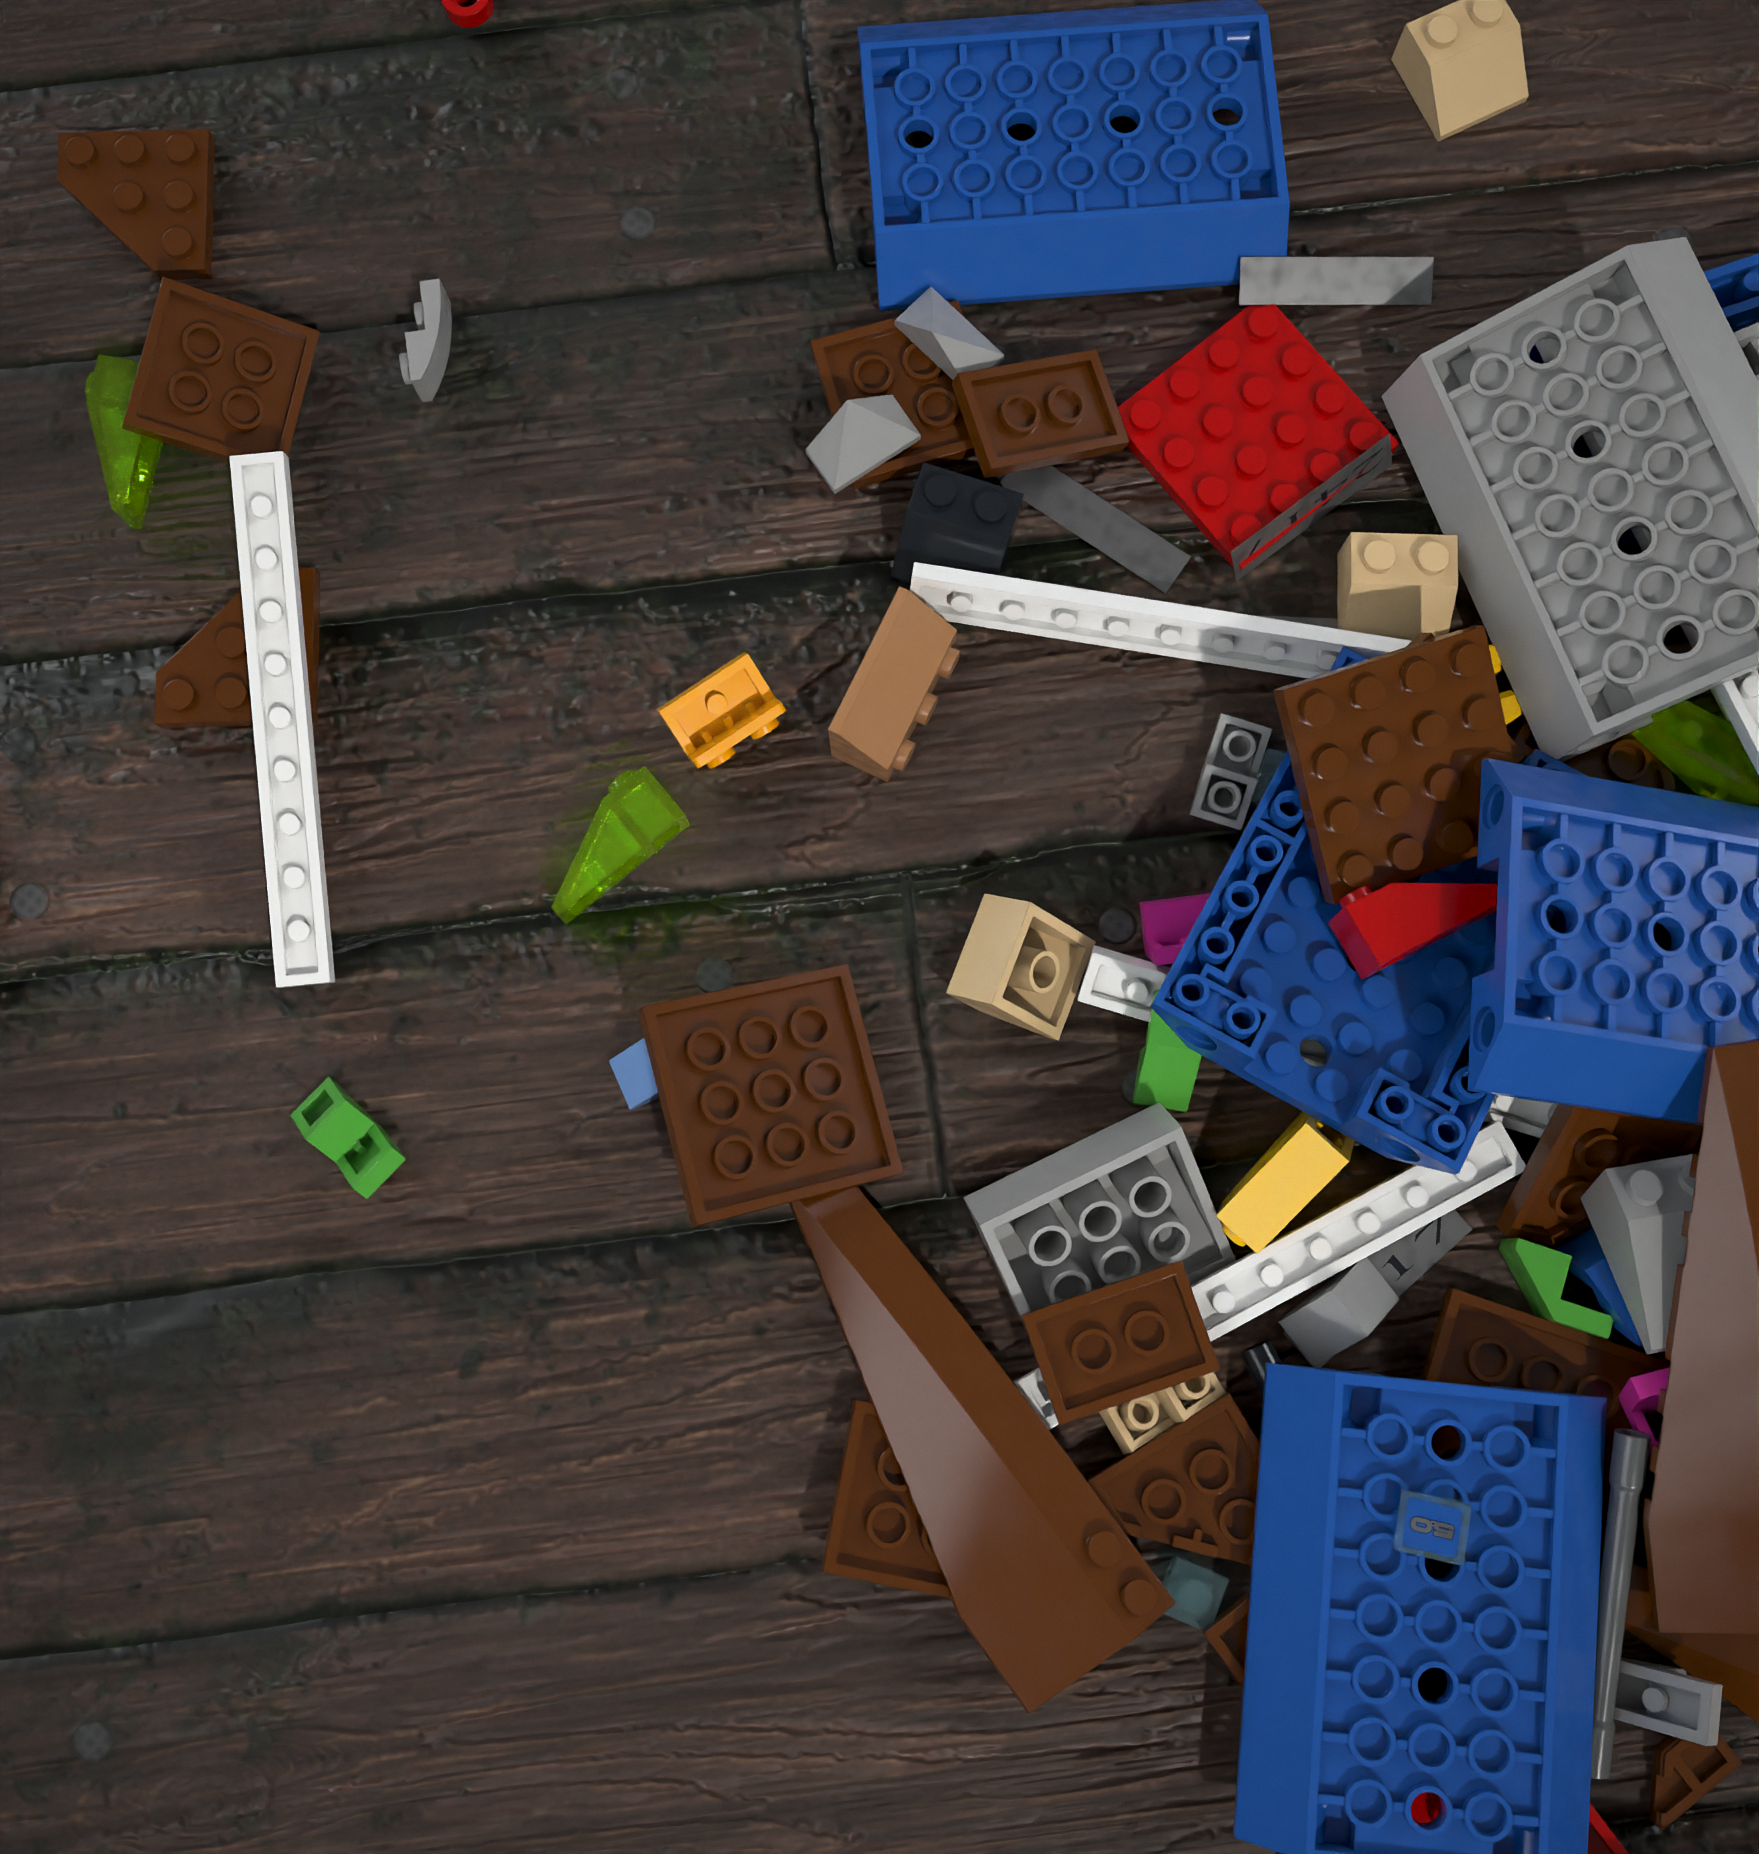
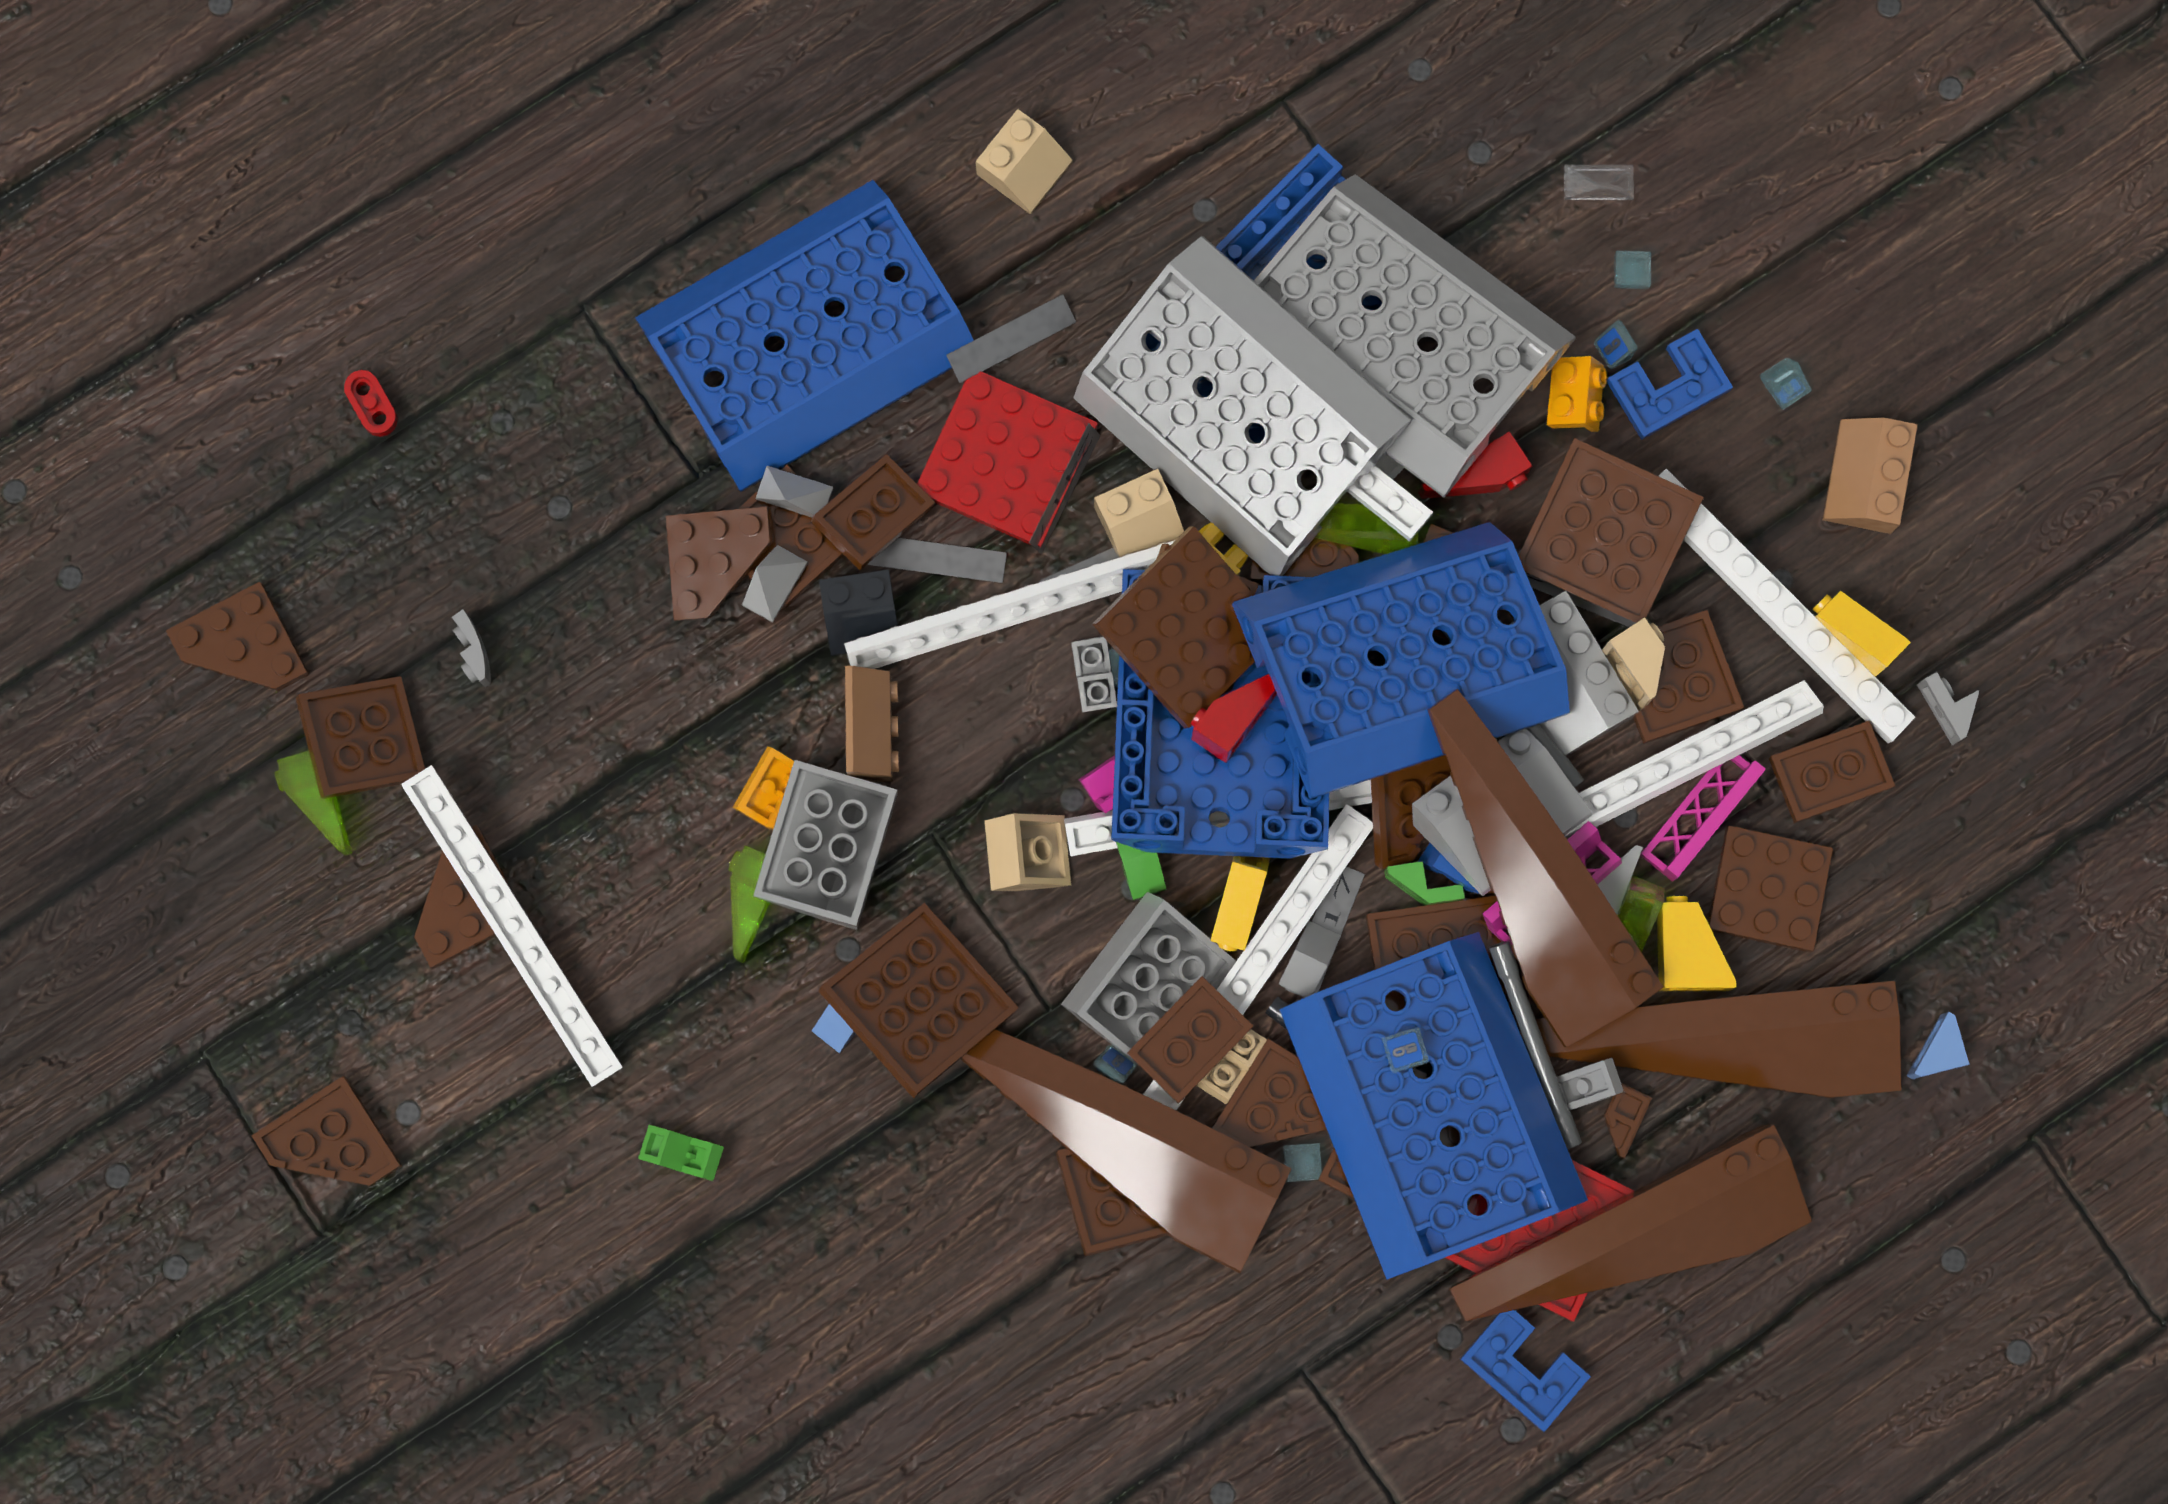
camera: 30 degrees left, 0 degrees up
(753, 818) = (826, 844): none -> light grey slope
(800, 369) = (712, 556): none -> reddish brown plate
(996, 1320) = (1114, 1065): none -> slope

